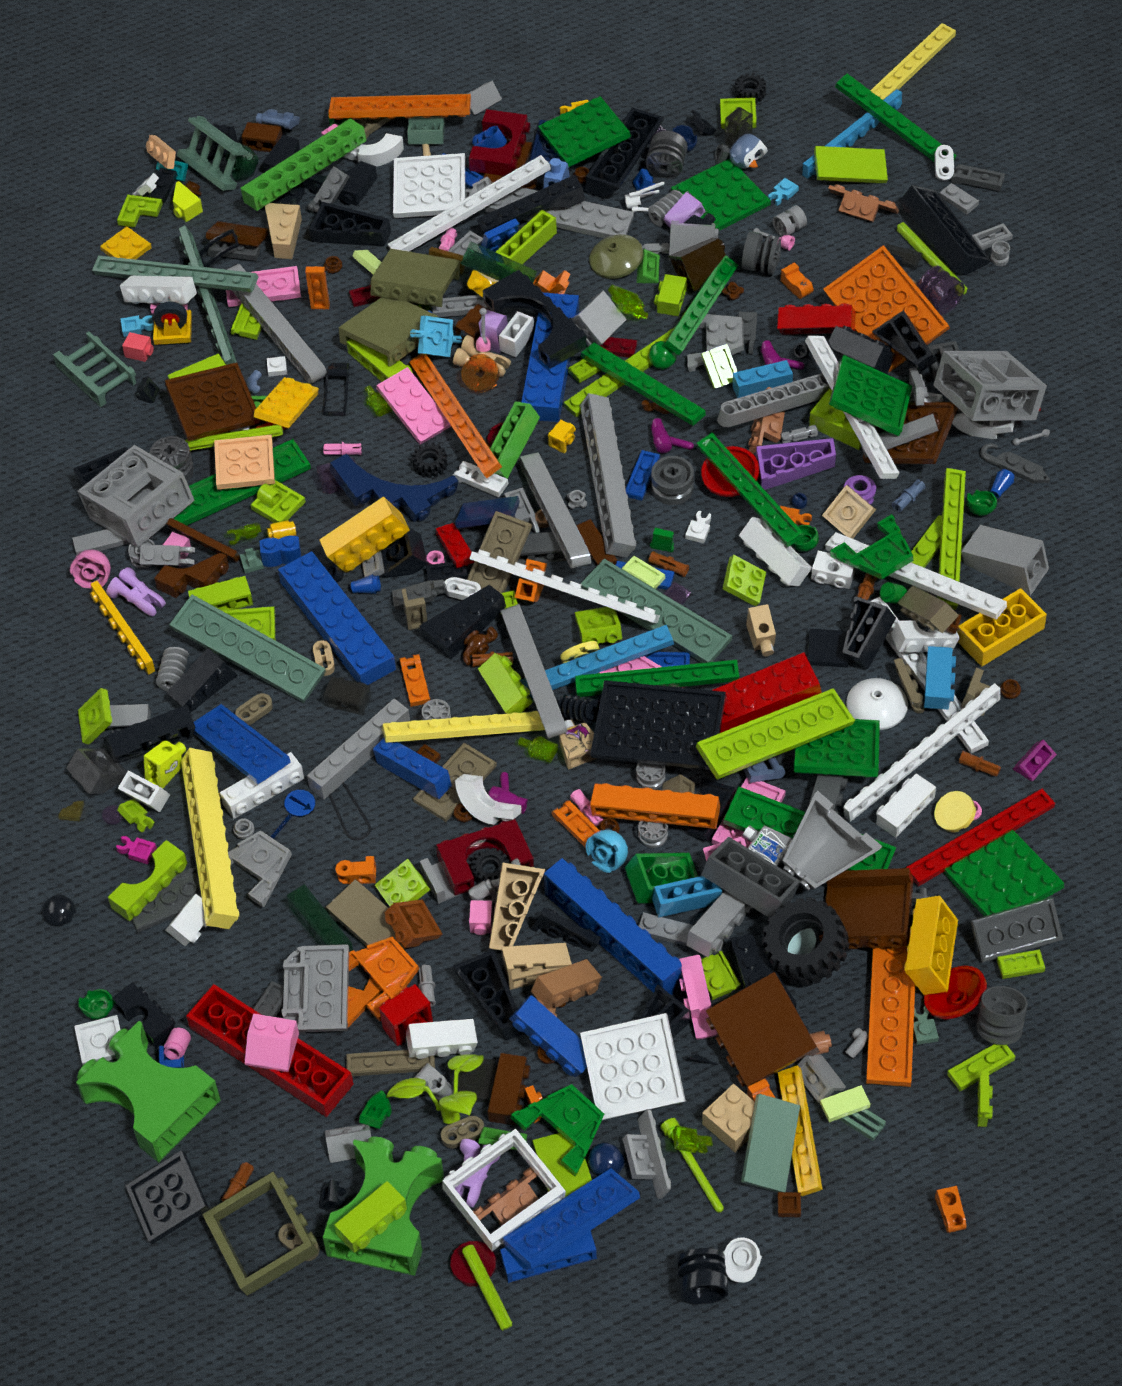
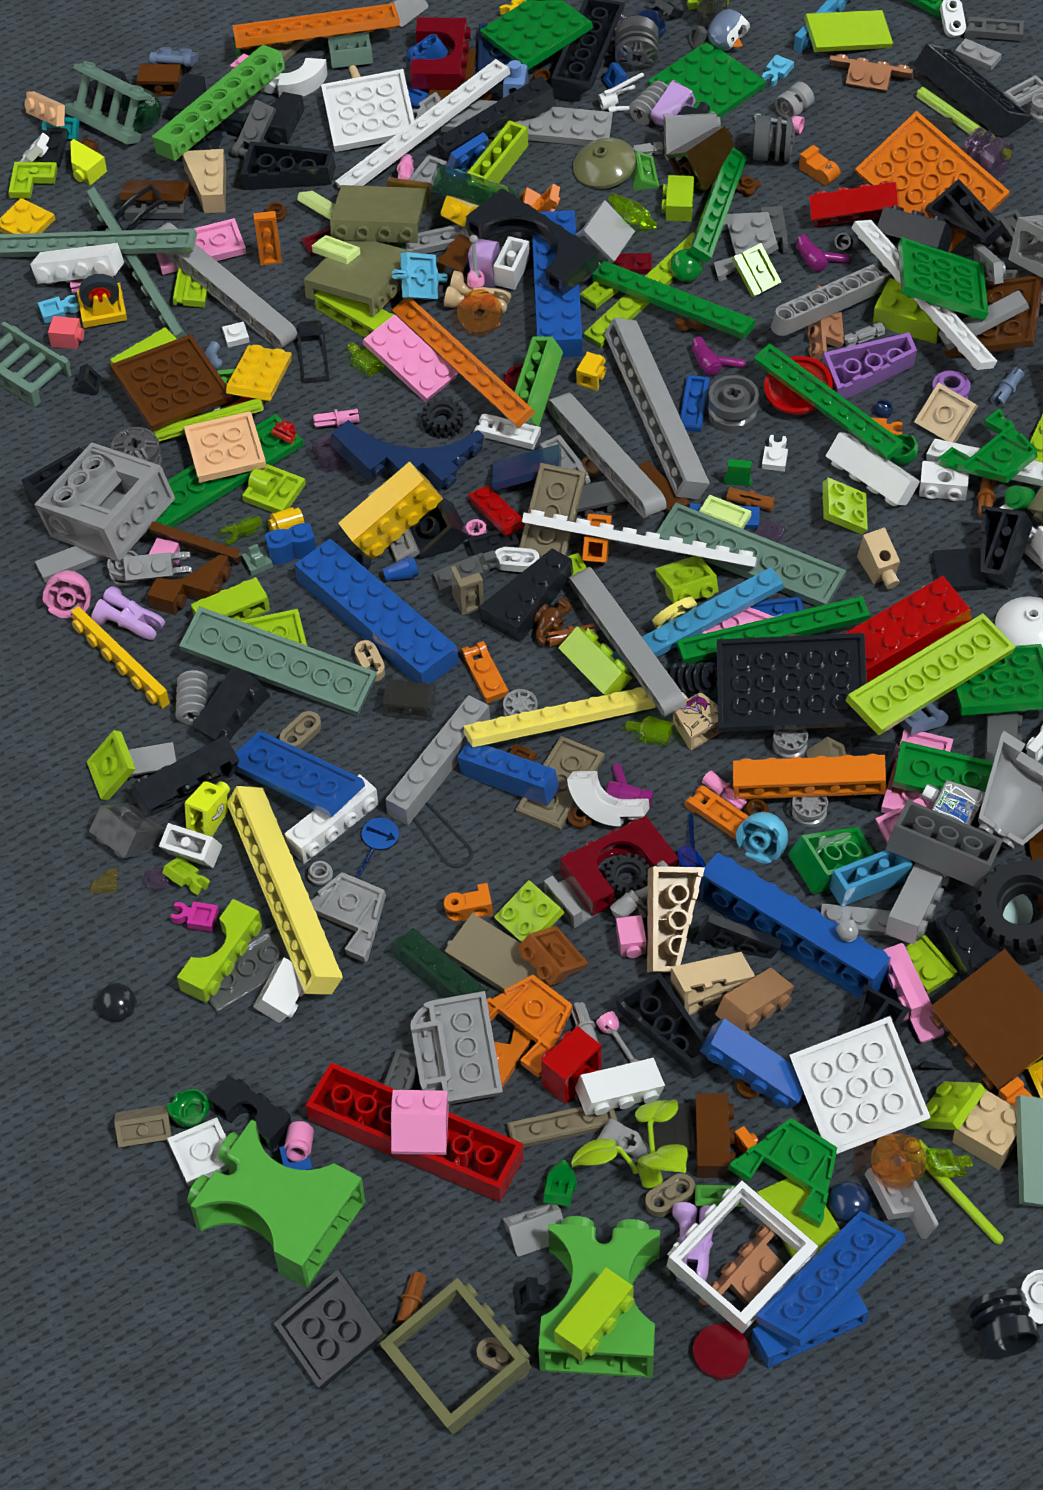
camera: 10 degrees left, 0 degrees up
(57, 1013) = (142, 1126): none -> dark tan panel
(297, 455) = (285, 431): none -> red plate
(371, 304) = (336, 249): none -> yellowish green tile
(446, 986) = (609, 1024): none -> hinge
(487, 1287) = (746, 1378): lime axle -> none
(543, 858) = (687, 854): none -> clear blue piece
(573, 496) = (626, 439): light grey plate -> none
(649, 1119) = (898, 1145): none -> clear orange plate
(650, 938) = (847, 930): none -> light grey hinge
(706, 1093) = (952, 1104): none -> lime plate
(759, 378) = (806, 277): dark azure brick -> none

